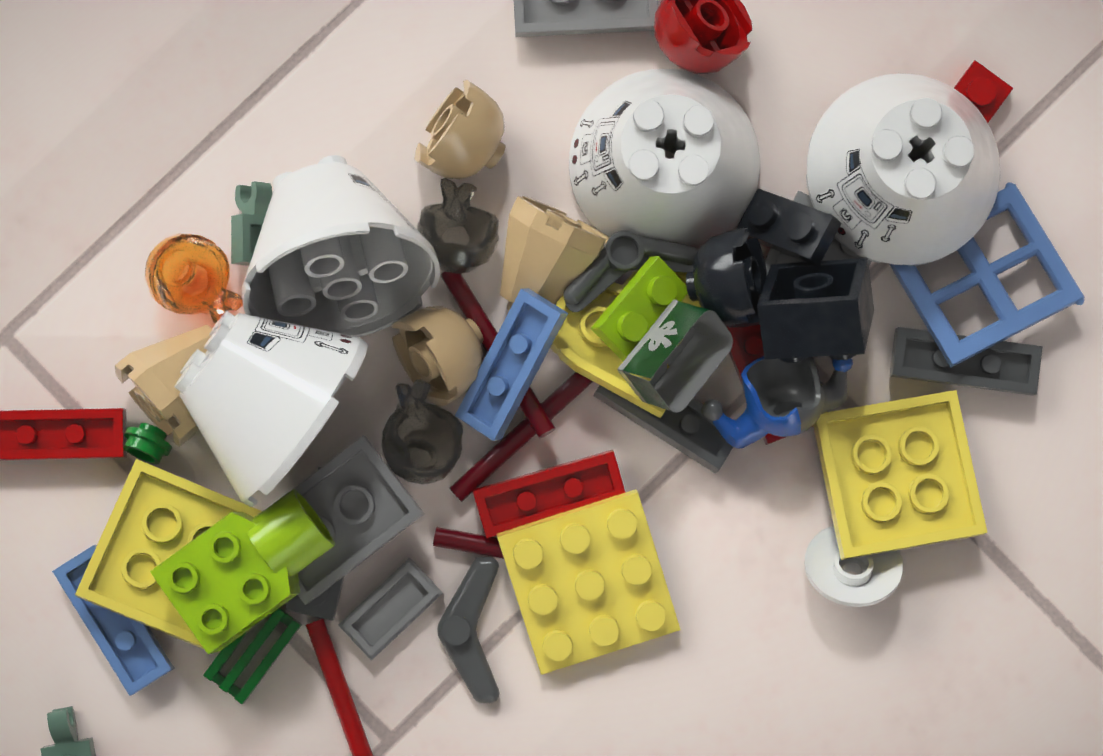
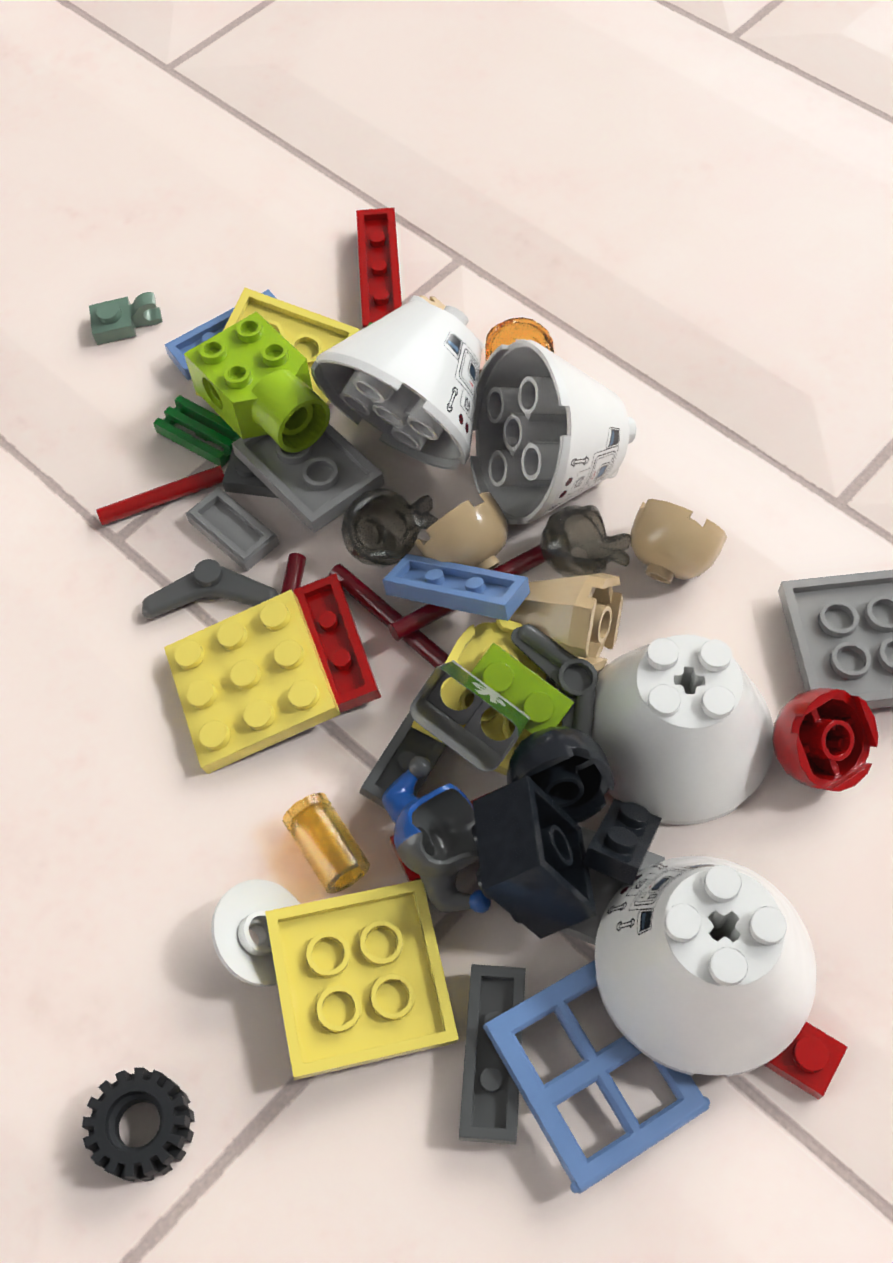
camera: 95 degrees right, 25 degrees down
(767, 505) = (326, 842): none -> clear yellow piece
(1041, 676) = (108, 1110): none -> black tyre

